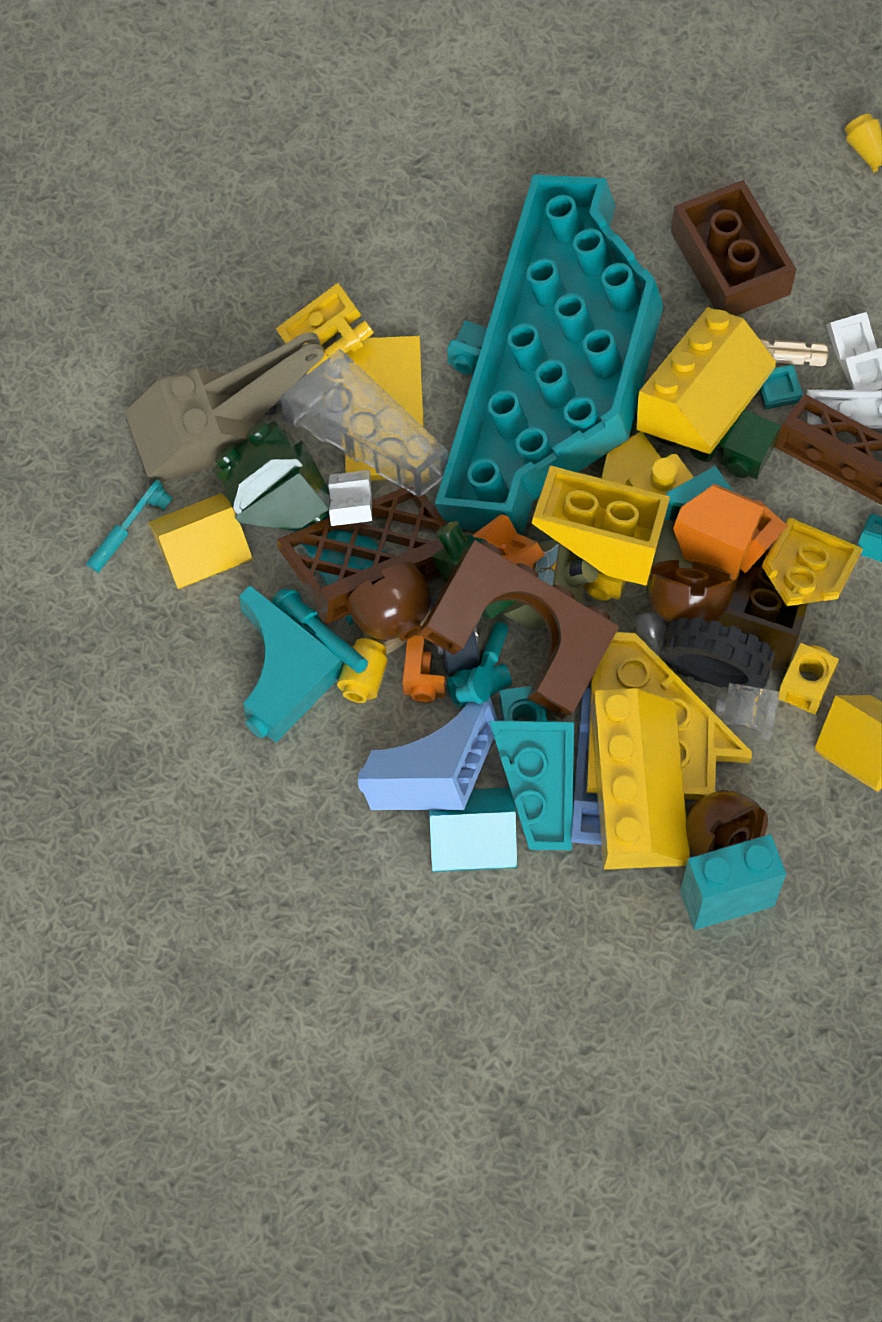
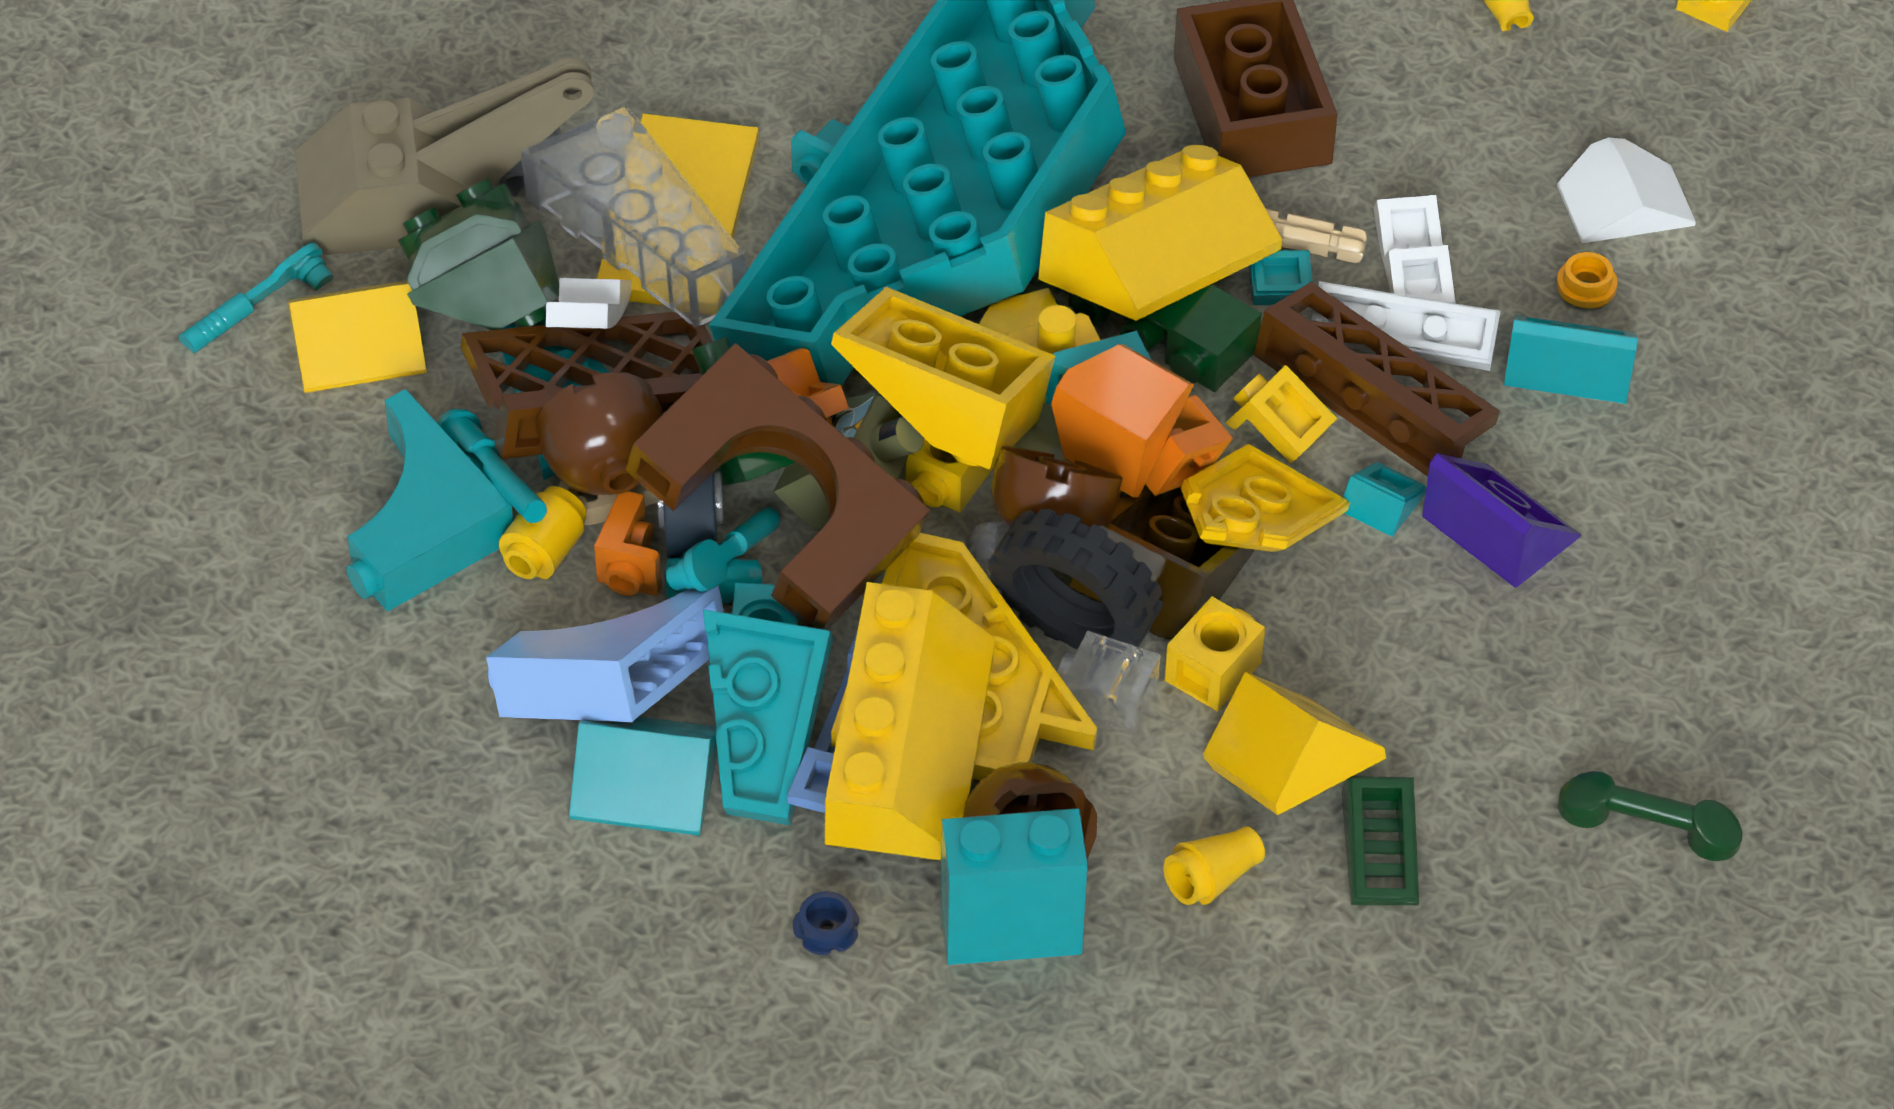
camera: 10 degrees right, 15 degrees down
(327, 317) = (633, 77): yellow plate -> none
(618, 909) = (830, 909): none -> dark blue plate
(806, 491) = (1282, 412): none -> yellow bracket
(840, 832) = (1211, 864): none -> yellow cone

